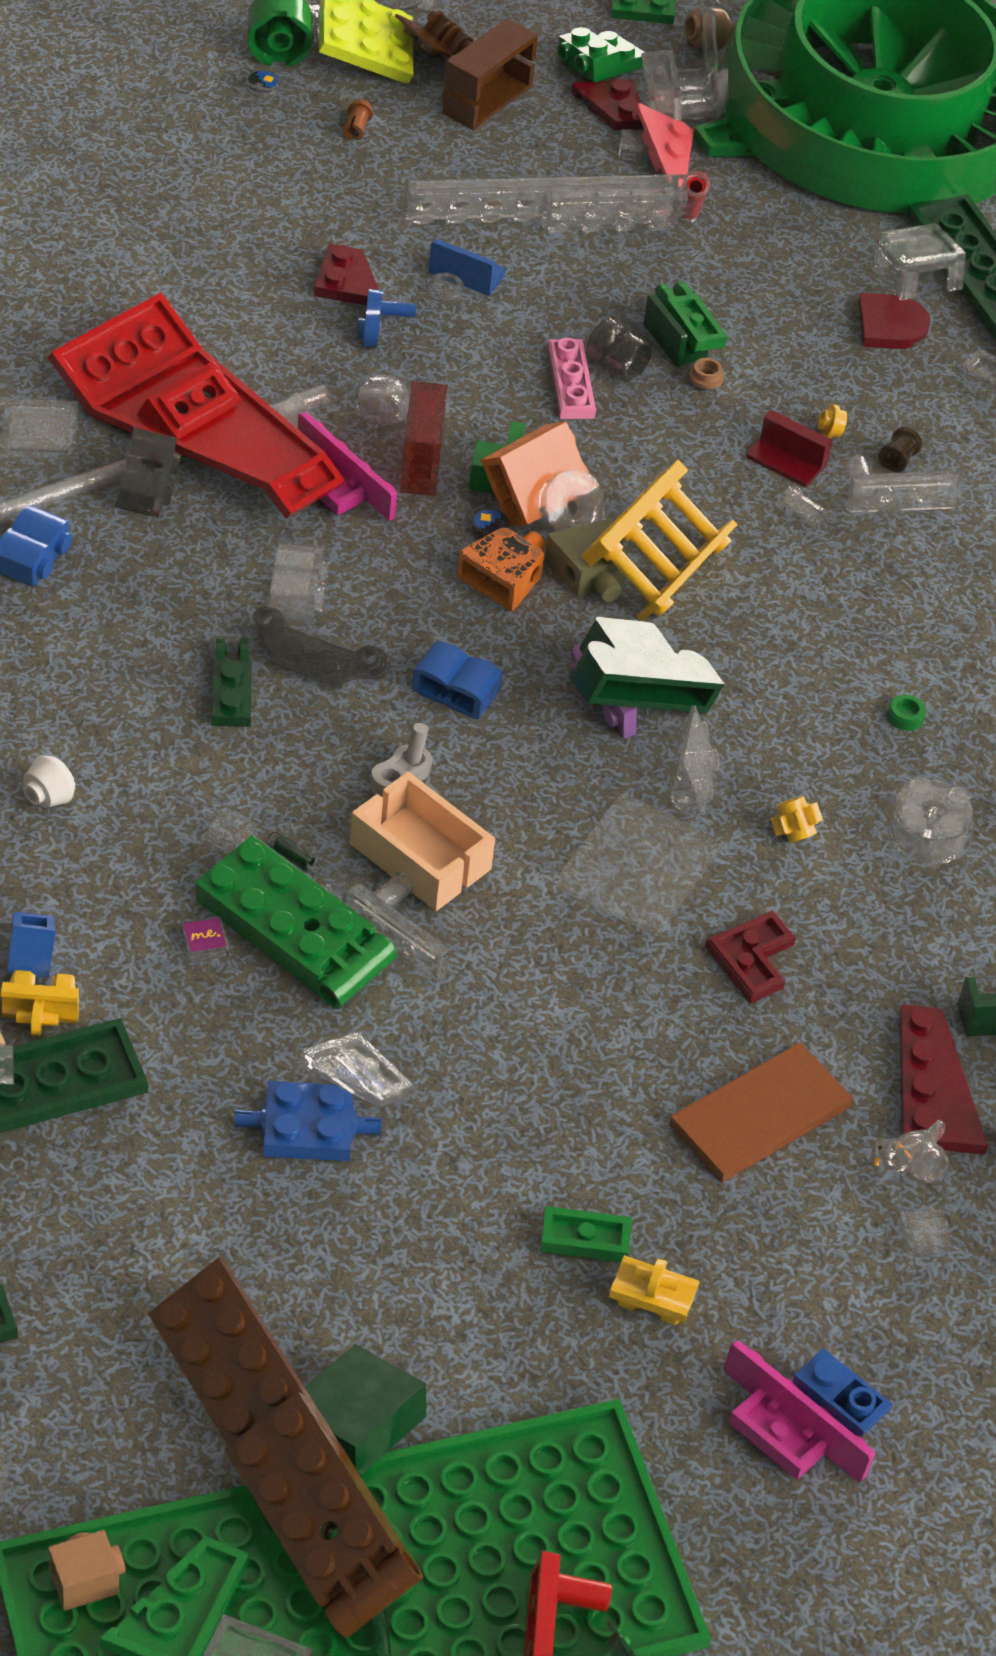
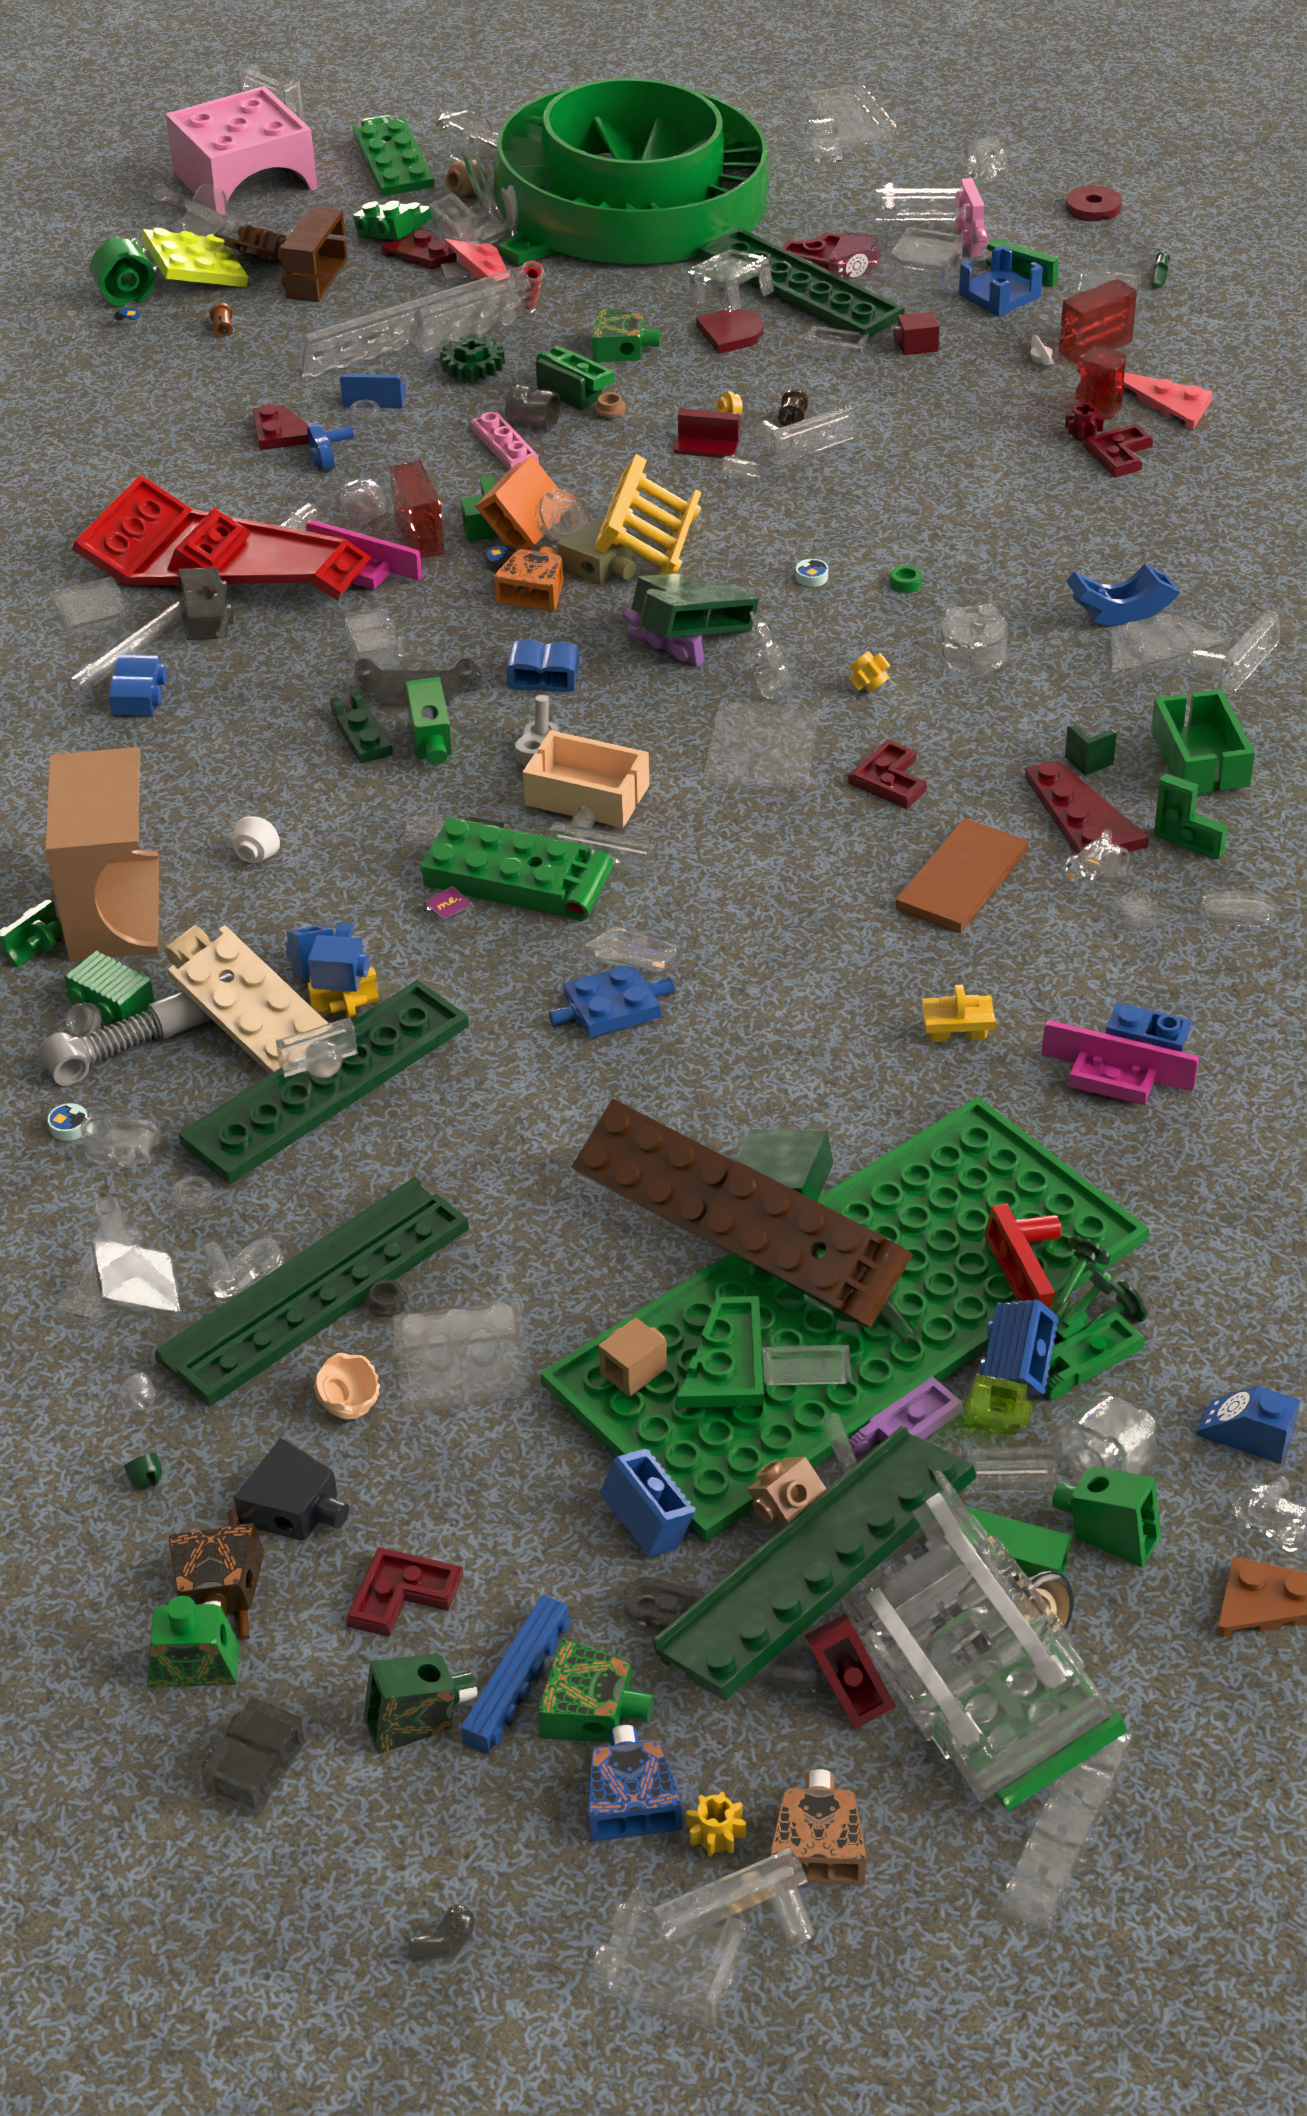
camera: 15 degrees left, 5 degrees down
(39, 971) = (338, 960): none -> blue brick
(294, 717) = (432, 736): none -> green torso
(585, 1234) = (880, 999): green plate -> none
(591, 262) = (472, 358): none -> dark green gear
(763, 290) = (621, 336): none -> green torso
(809, 666) = (812, 572): none -> tile

